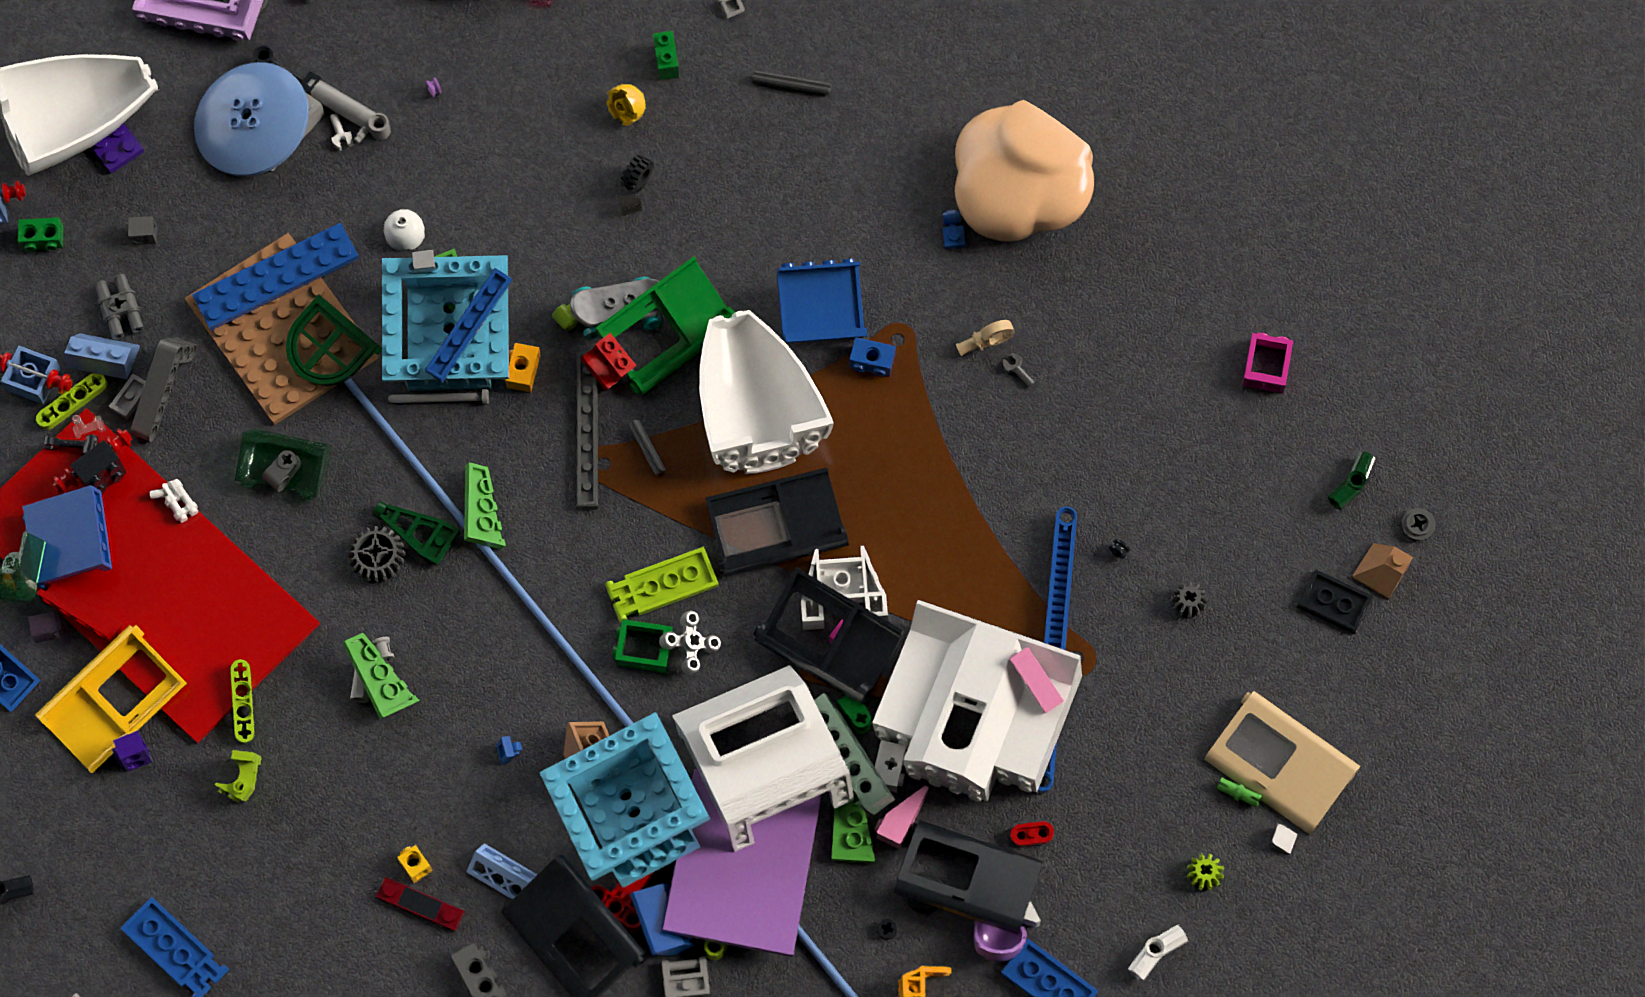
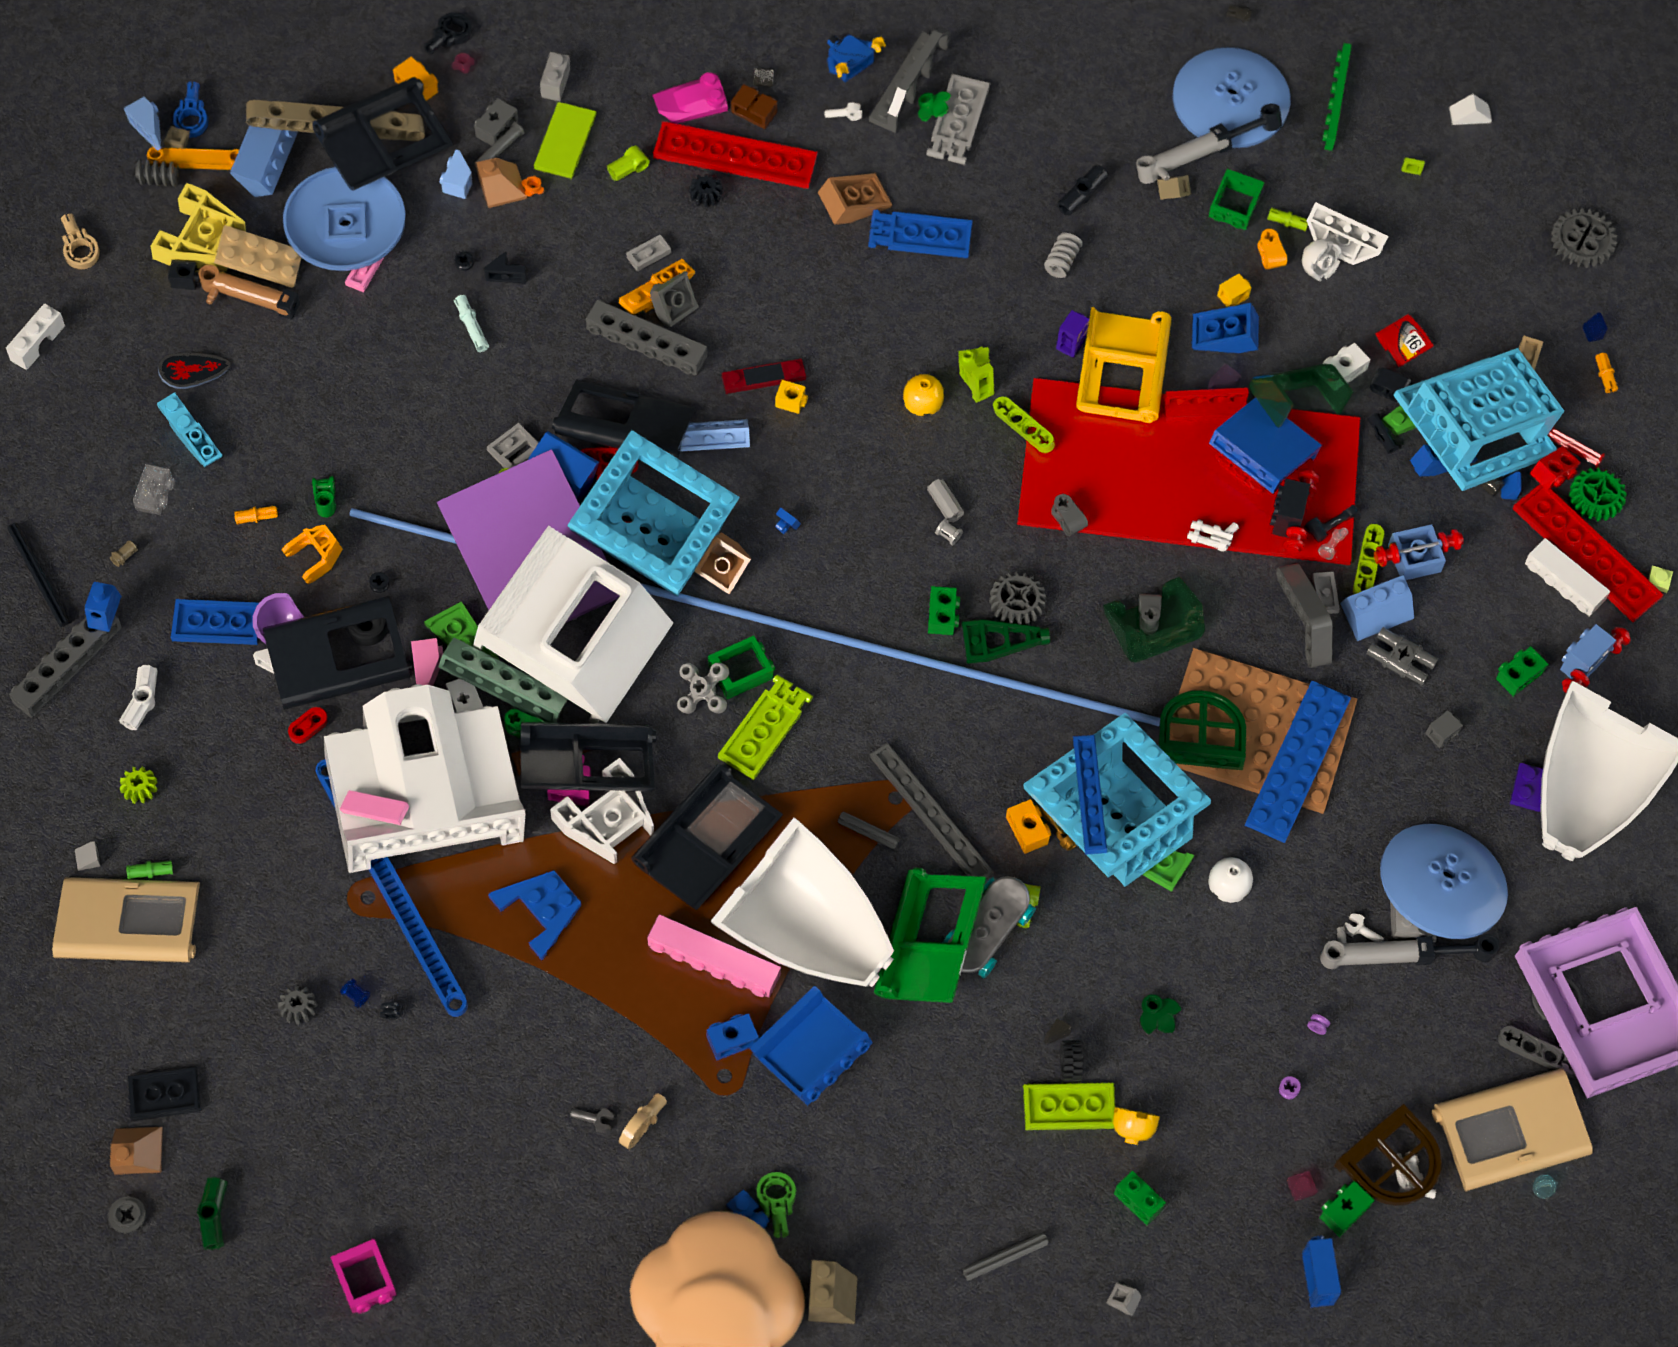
camera: 140 degrees right, 5 degrees down
(72, 839) = (1062, 255): none -> light grey piece
(277, 592) = (1068, 515): none -> dark grey piece
(300, 791) = (923, 395): none -> yellow cylinder
(380, 682) = (928, 501): bright green wing -> none
(423, 261) = (1171, 813): light grey slope -> none
(448, 587) = (941, 610): none -> green brick
(480, 510) = (959, 682): bright green wing -> none
(493, 55) = (1292, 1082): none -> medium lavender bush
(543, 170) = (1160, 1017): none -> dark green plate
(607, 363) = (952, 862): red panel -> none
(670, 156) = (1069, 1106): none -> lime tile
(848, 433) = (714, 956): none -> bright pink brick
(923, 216) = (777, 1205): none -> bright green pin
(937, 556) = (547, 900): none -> blue wing
(939, 130) = (832, 1293): none -> dark tan slope
(1137, 580) = (355, 993): none -> clear blue bush

